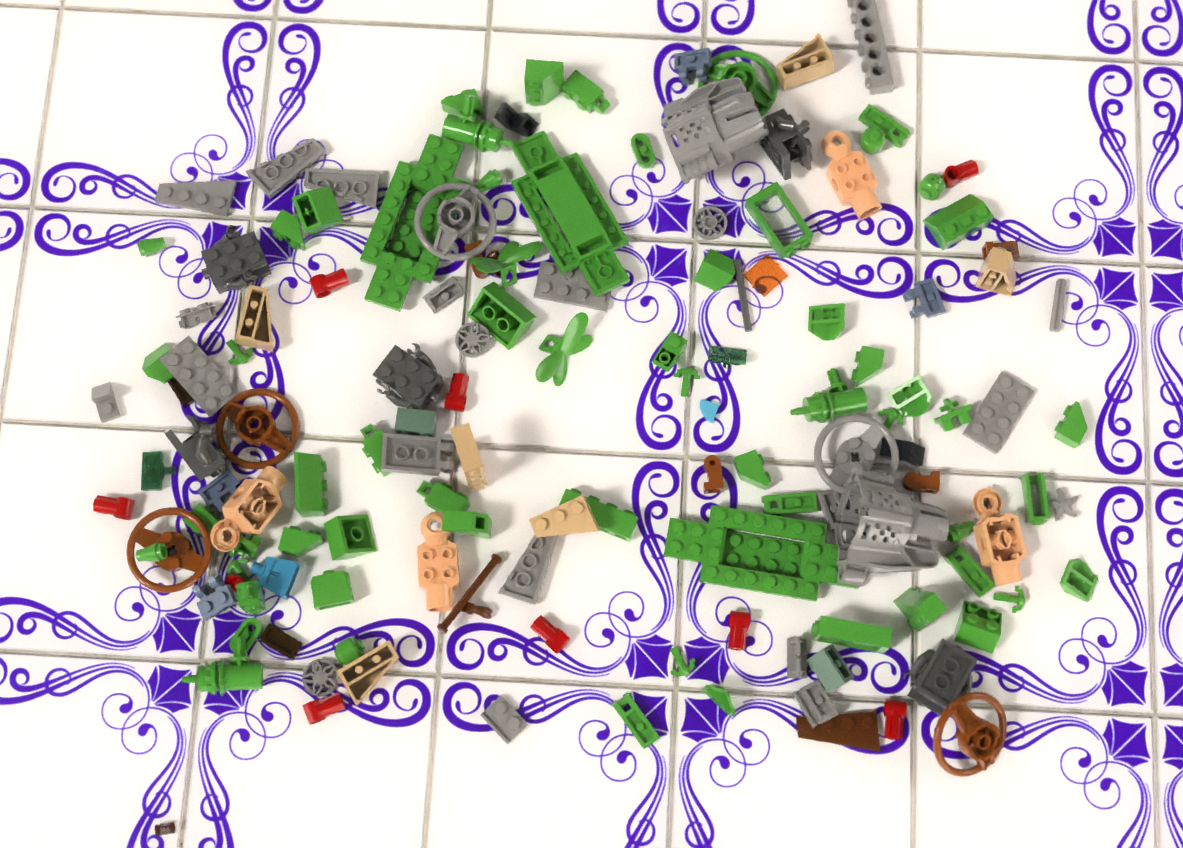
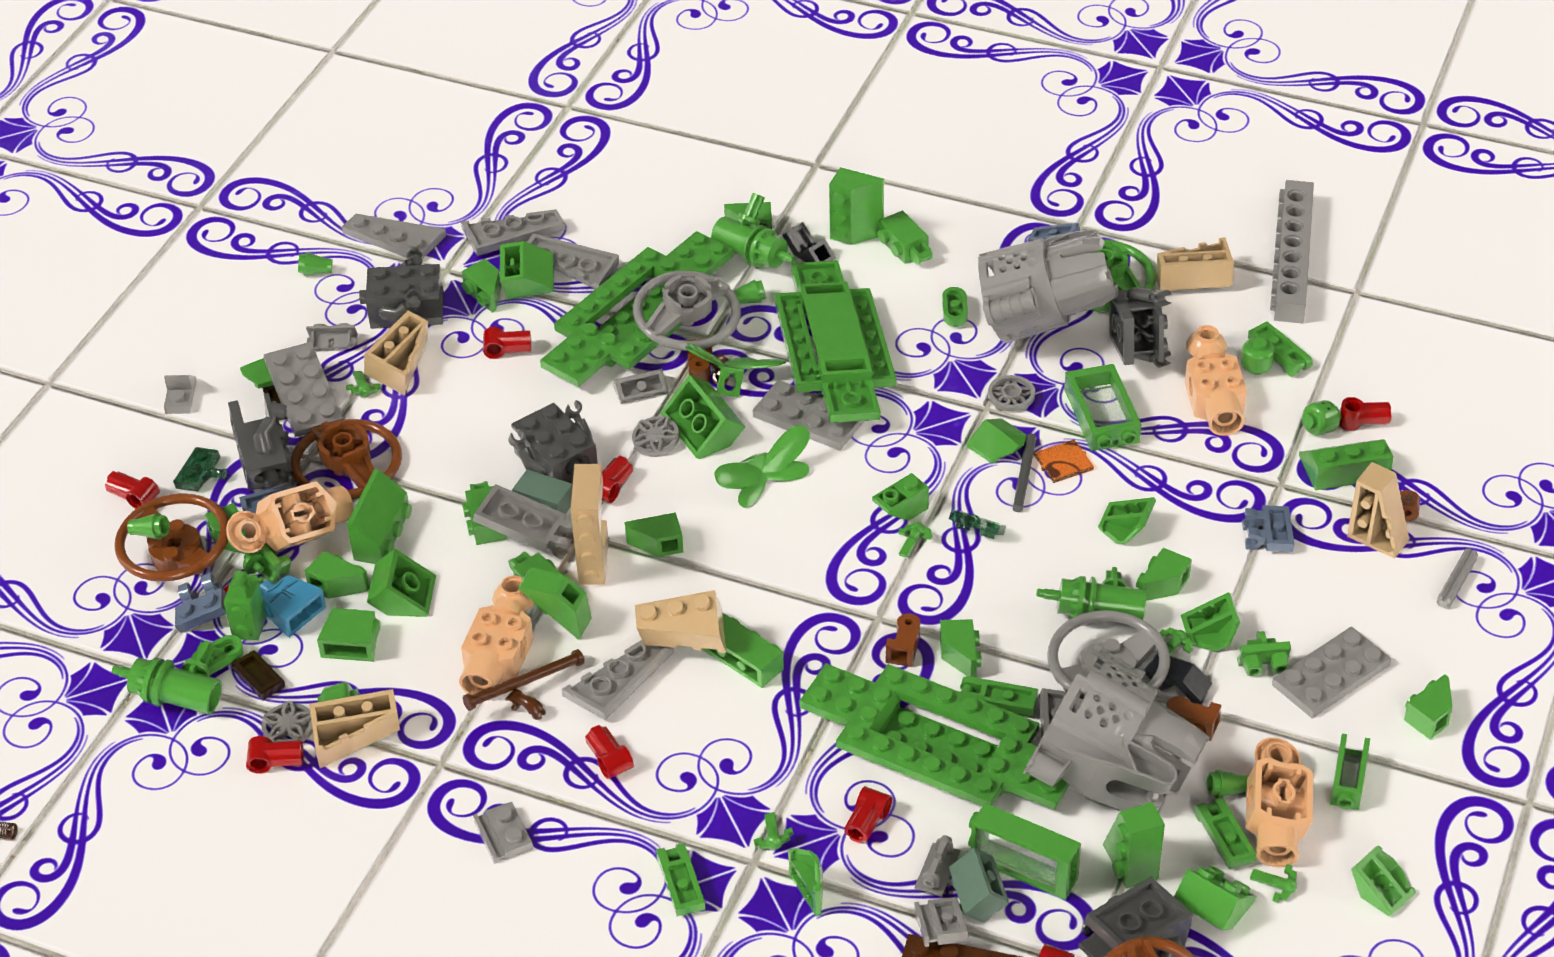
camera: 20 degrees right, 30 degrees down
(511, 434) = (655, 534): none -> bright green slope
(708, 410) = (930, 575): medium azure tile -> none
(1062, 505) = (1389, 793): light grey animal -> none

